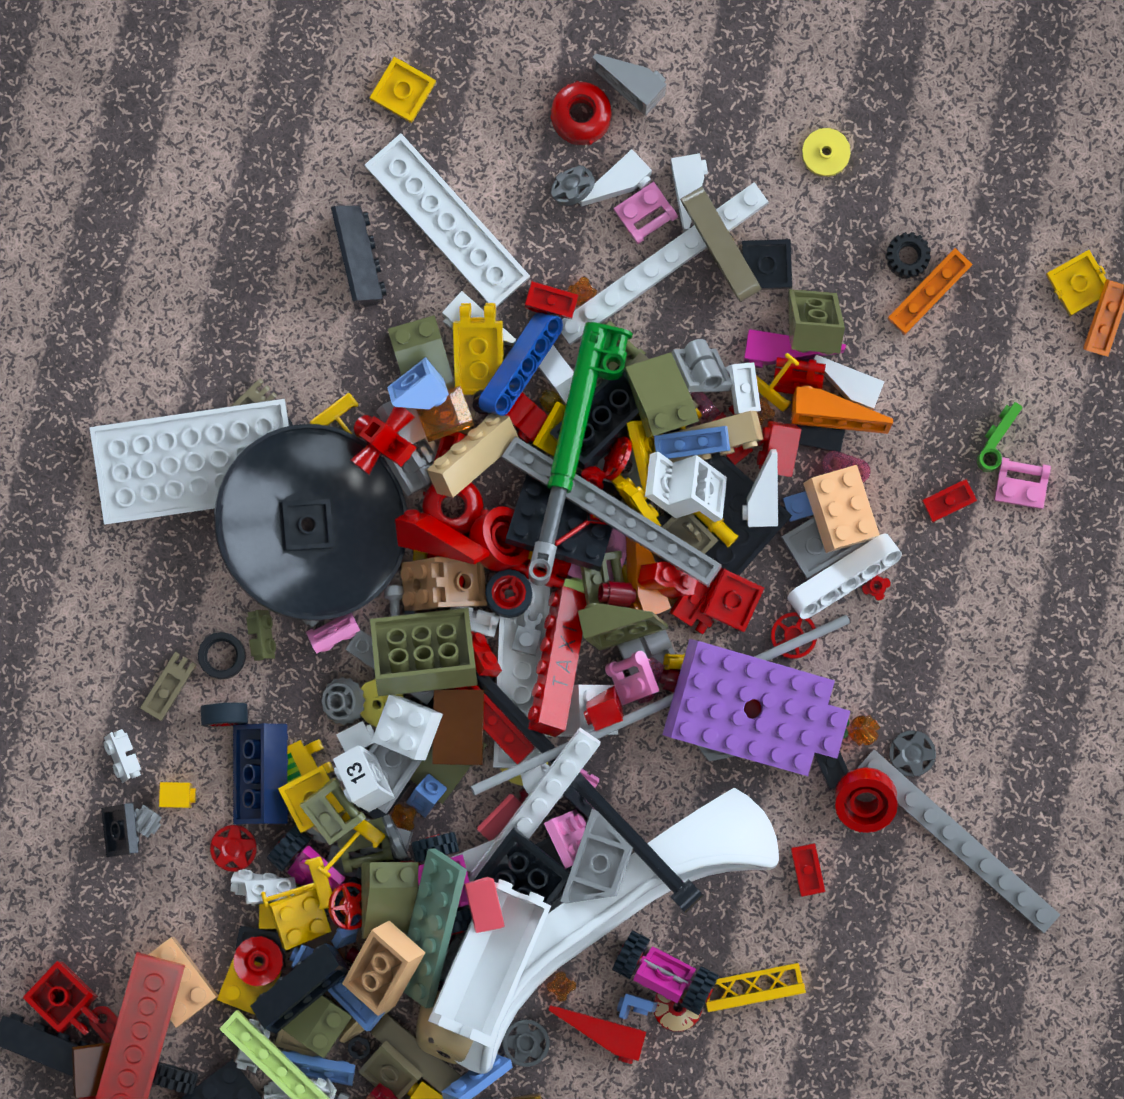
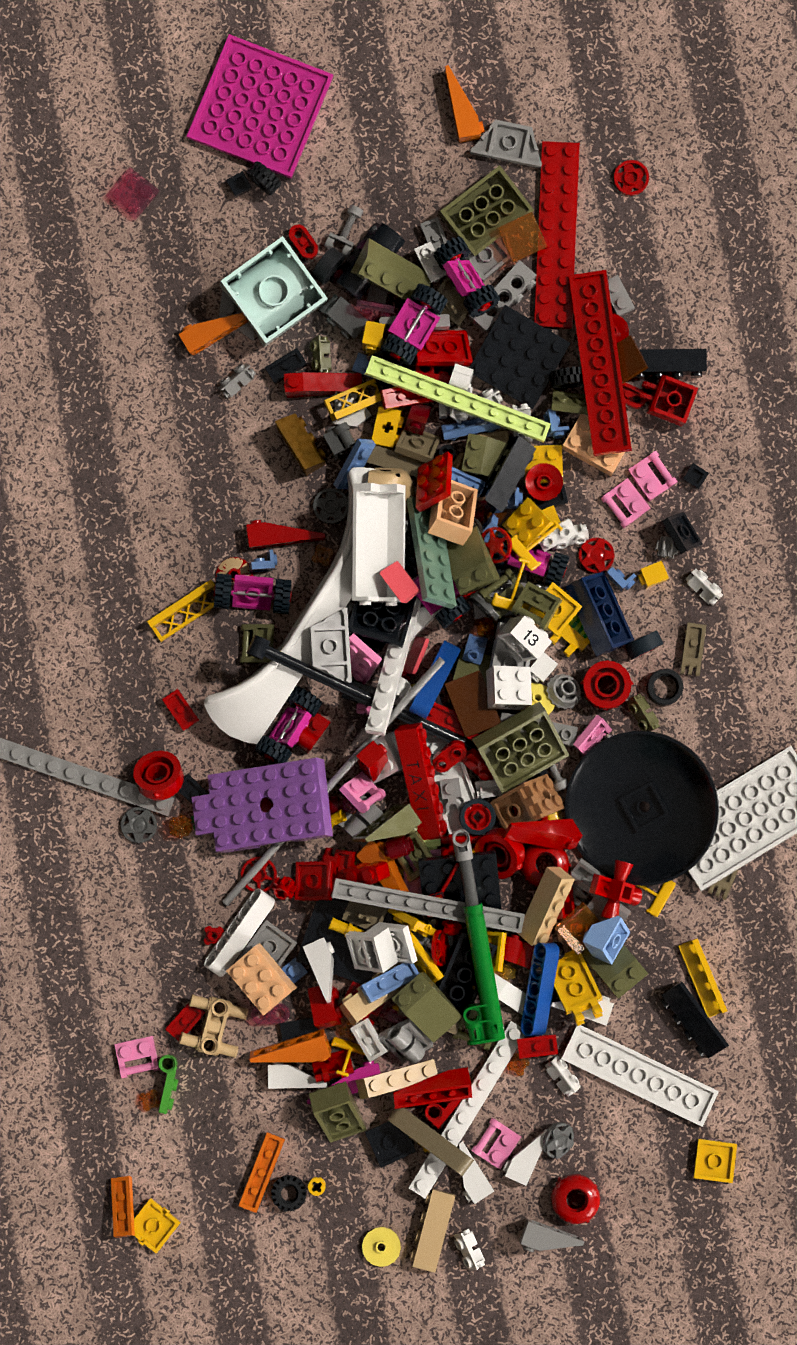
camera: 160 degrees right, 0 degrees up
(73, 893) = (695, 476): none -> black plate
(132, 912) = (646, 478): none -> bright pink plate
(163, 897) = (630, 499): none -> bright pink plate
(185, 1047) = (569, 402): none -> olive plate
(214, 1035) = (555, 431): none -> medium blue bracket
(220, 810) = (617, 578): none -> medium blue bracket
(274, 671) = (618, 674): none -> red piece
(326, 300) = (702, 978): none -> yellow fence
(390, 1013) = (434, 481): none -> red plate
(512, 753) = (428, 694): none -> blue beam
(513, 678) = (448, 756): none -> red plate
(532, 246) = (558, 1068): none -> white hinge
(662, 777) = (312, 732): none -> red plate
(674, 918) = (263, 630): none -> olive plate
(677, 278) = (444, 1112): none -> red plate
(680, 297) = (443, 1087): none -> red slope
(687, 792) = (289, 726): none -> plate
(728, 117) = (472, 1258): none -> white hinge
(730, 329) = (395, 1079): none -> tan brick
(759, 144) = (433, 1230): none -> tan brick
(770, 606) = (284, 888): none -> red gear
(868, 255) = (316, 1192): none -> yellow bush
(918, 480) = (213, 1026): none -> tan piece
(1032, 422) = (148, 1105): none -> clear orange plate

